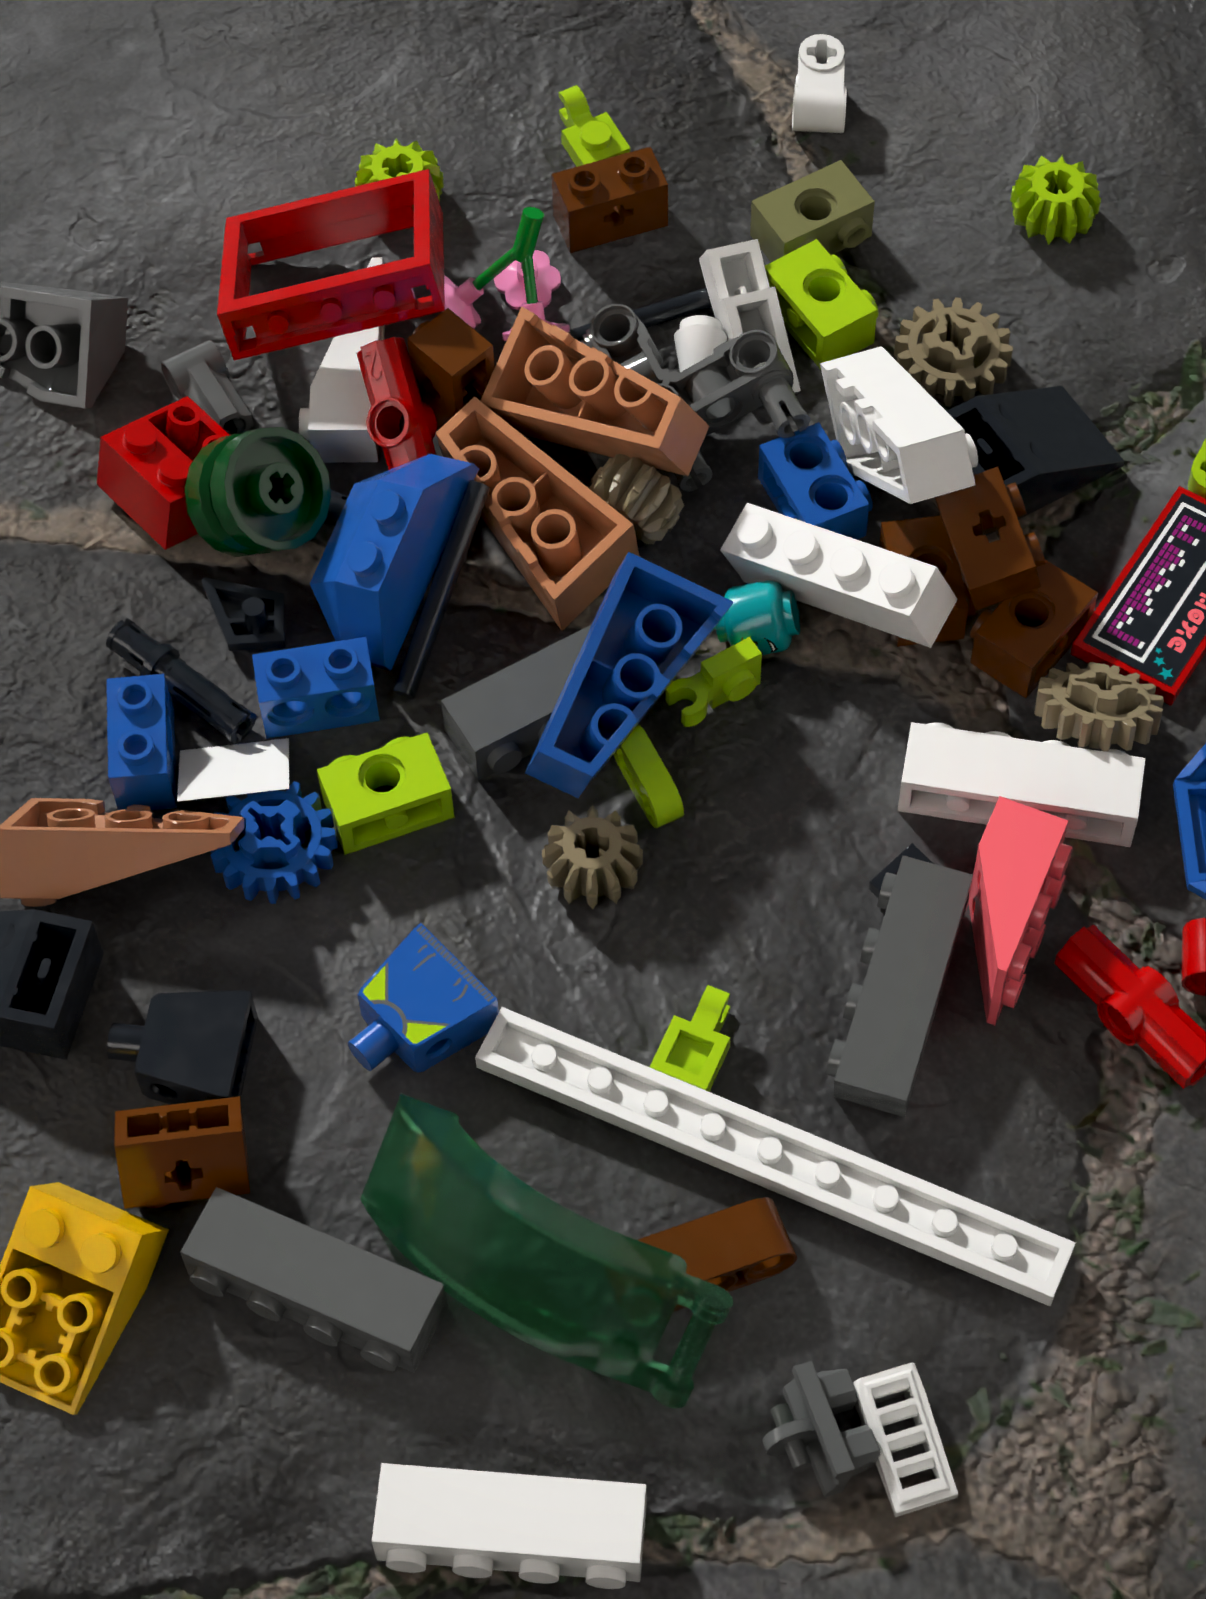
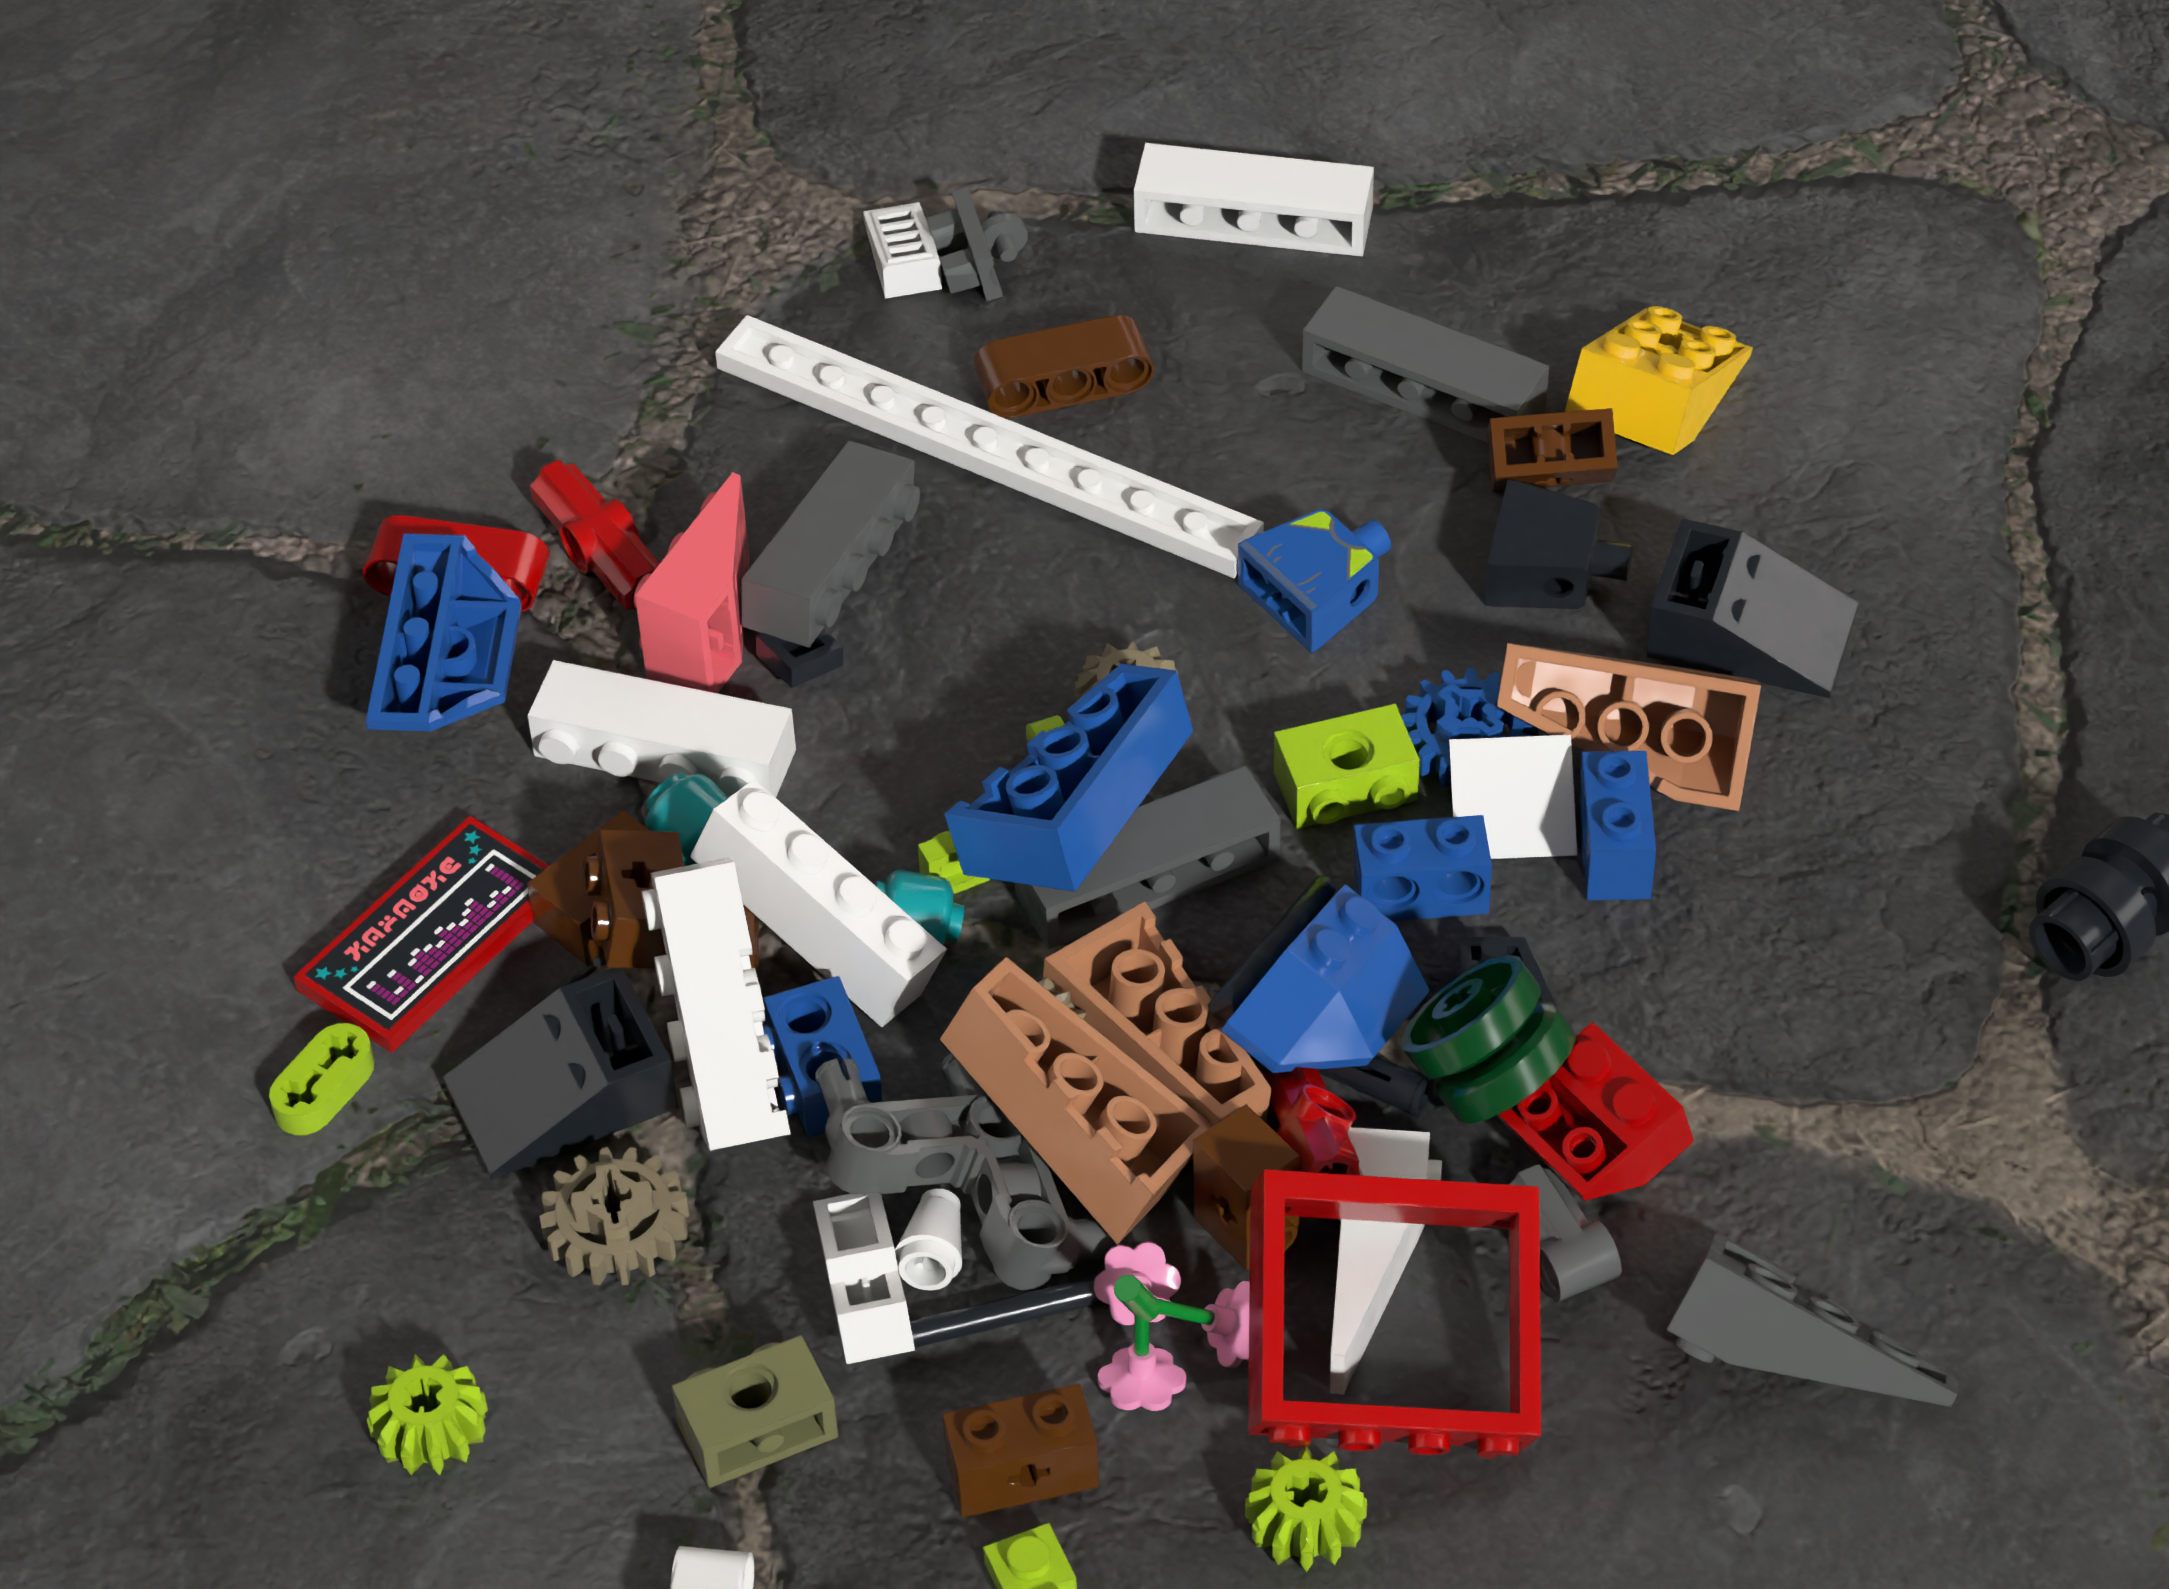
camera: 175 degrees left, 10 degrees down
(183, 681) = (1597, 917): black pin -> none
(534, 1261) = (1184, 304): clear green windscreen -> none
(695, 1048) = (1043, 526): lime plate -> none
(822, 303) = (765, 1256): lime brick -> none
(971, 694) = (683, 807): none -> teal head
(1098, 706) = (556, 761): dark tan gear -> none

